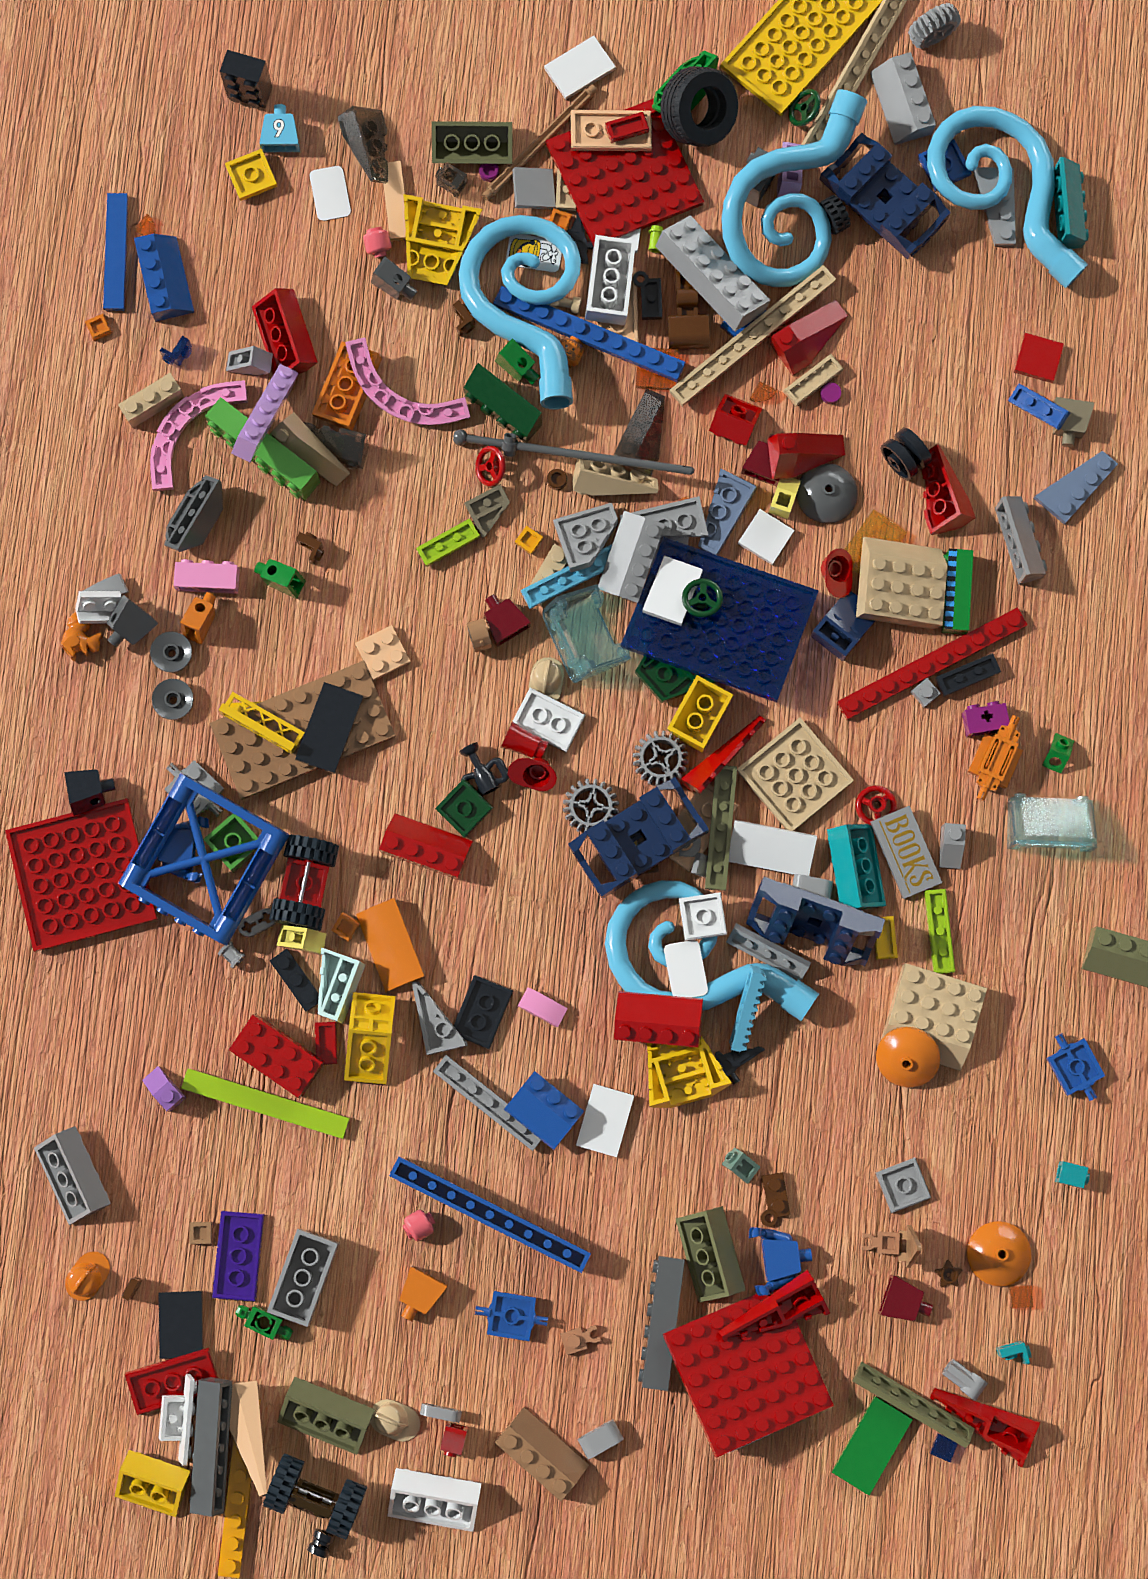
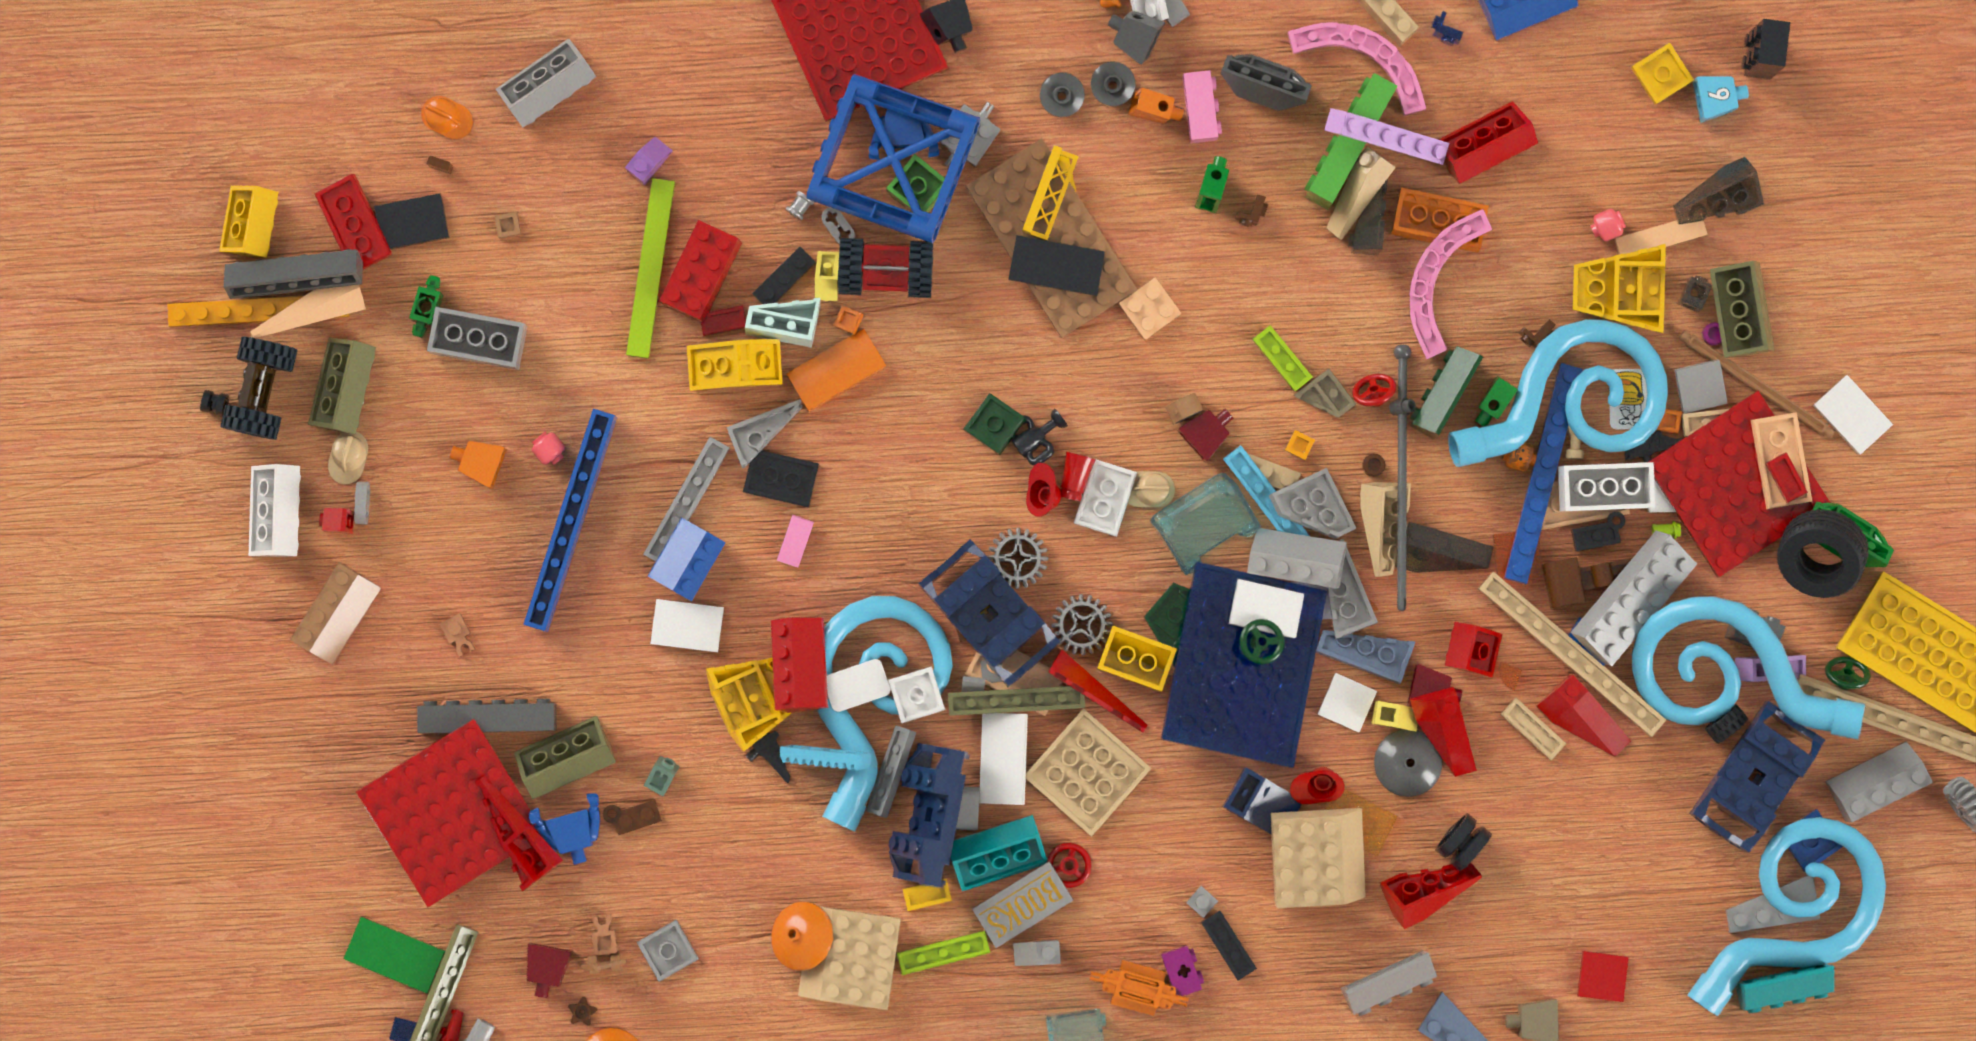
camera: 80 degrees right, 5 degrees up
(176, 1418) = (316, 234): white bracket -> none
(238, 1256) = (490, 268): dark purple tile -> none
(249, 361) = (1448, 110): light grey slope -> none
(330, 193) = (1658, 163): white sticker -> none
(386, 277) = (1571, 241): dark grey torso -> none
(425, 846) = (947, 390): red slope -> none
(511, 1315) = (470, 559): blue plate -> none
(600, 1439) = (359, 671): light grey beam -> none
(830, 393) = (1522, 750): magenta tile -> none
(932, 663) = (1235, 905): red plate -> none
(958, 591) = (1319, 920): green brick -> none
(1039, 406) = (1543, 982): blue tile -> none

